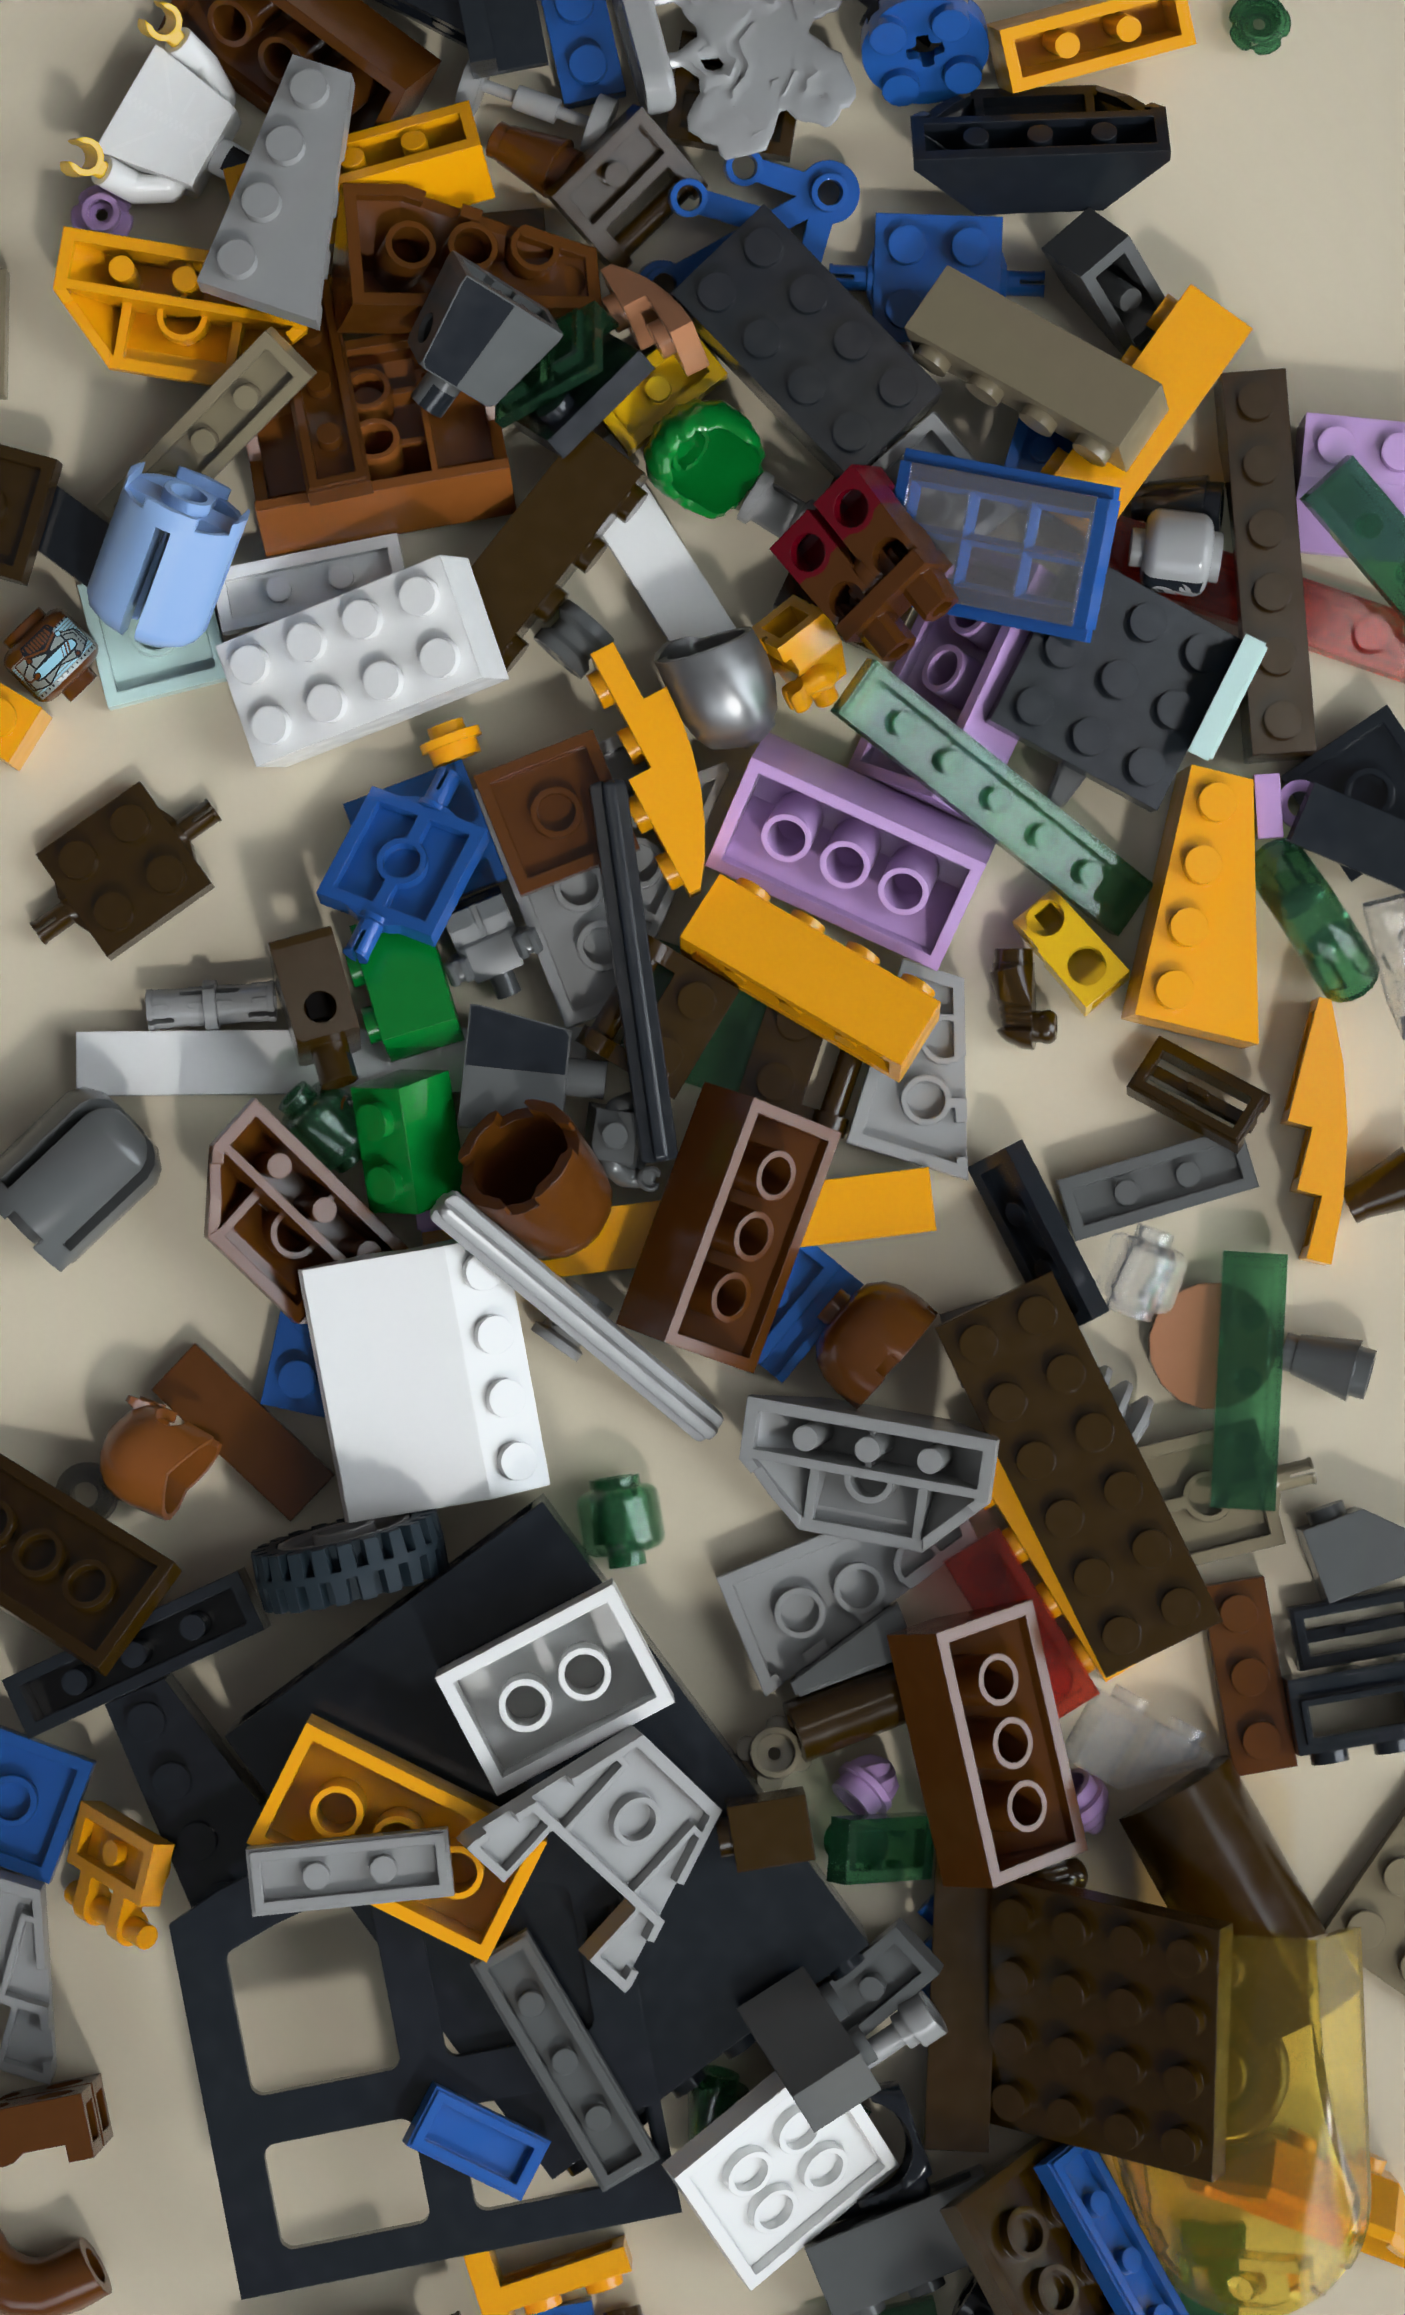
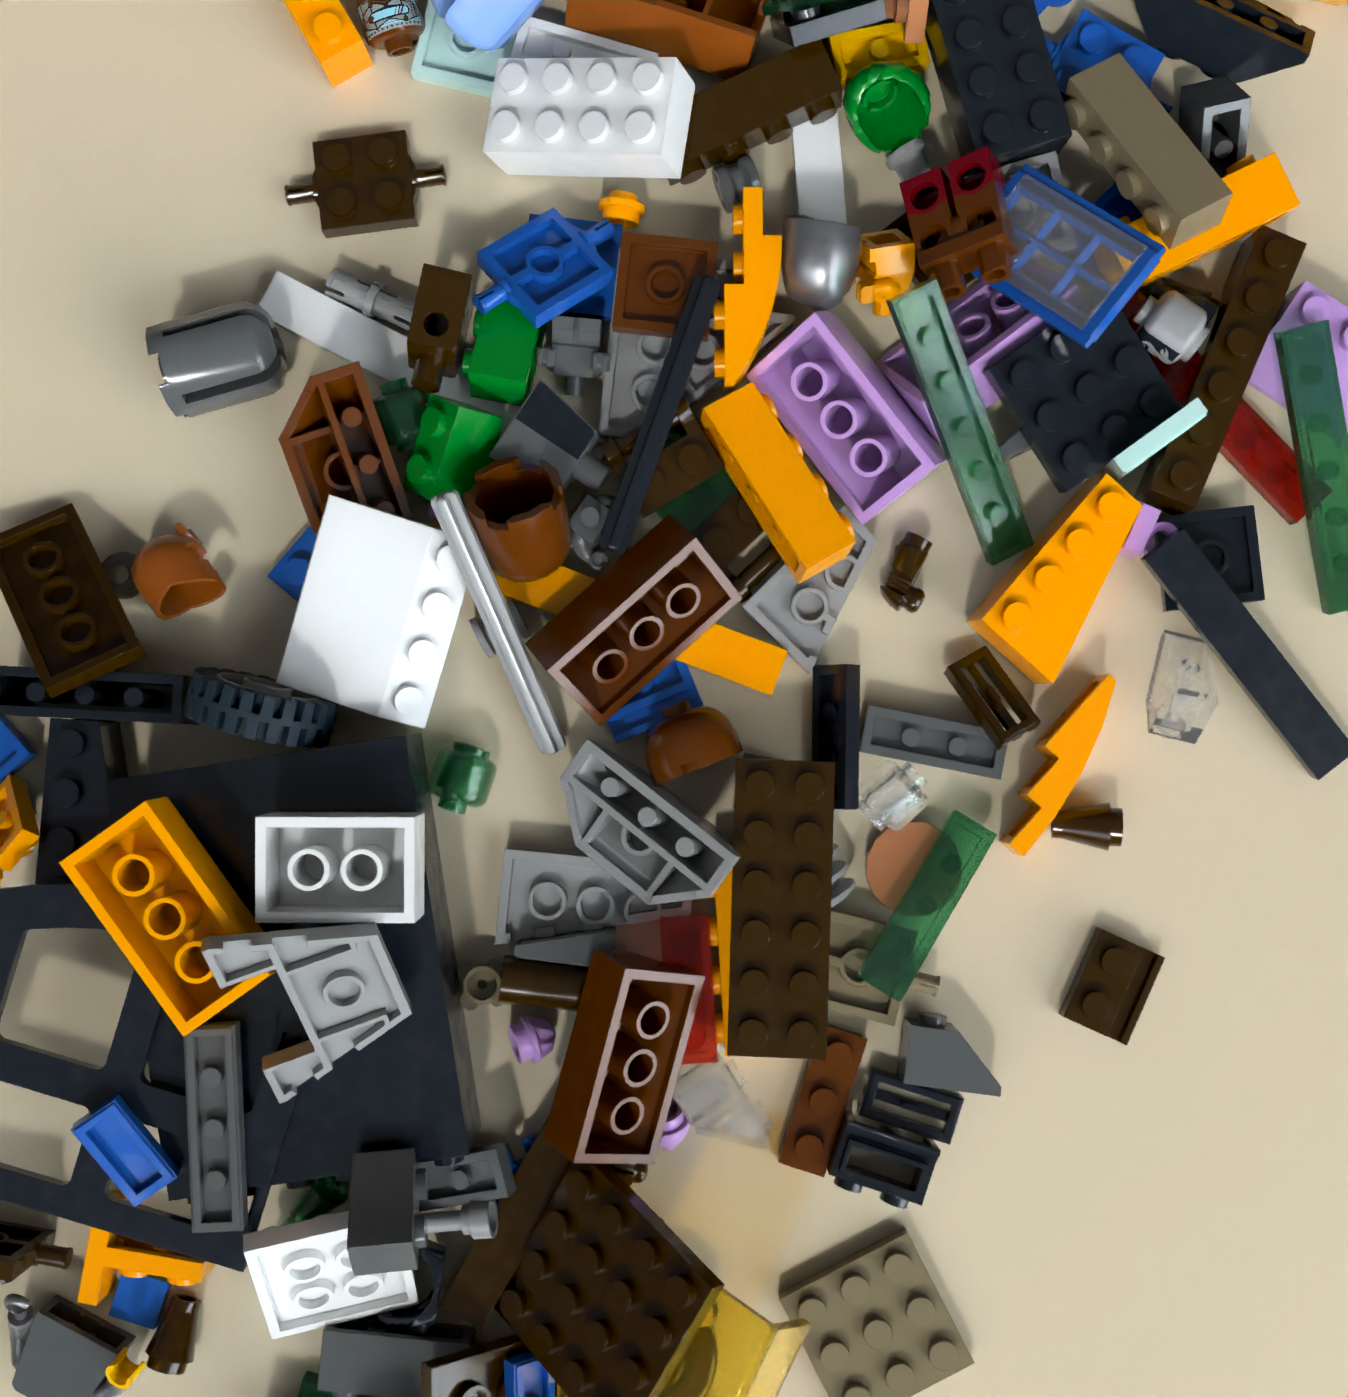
camera: 30 degrees right, 0 degrees up
(249, 1433) = (249, 591): reddish brown tile -> none
(350, 1871) = (118, 922): light grey tile -> none
(766, 1830) = (437, 1042): dark brown brick -> none
(879, 1848) = (514, 1086): clear green tile -> none
(1071, 951) = (957, 560): yellow leg -> none
(1218, 1856) = (739, 1222): dark brown brick -> none
(1314, 921) = (1131, 623): clear green cylinder -> none
(1330, 1363) = (986, 922): dark grey cone -> none

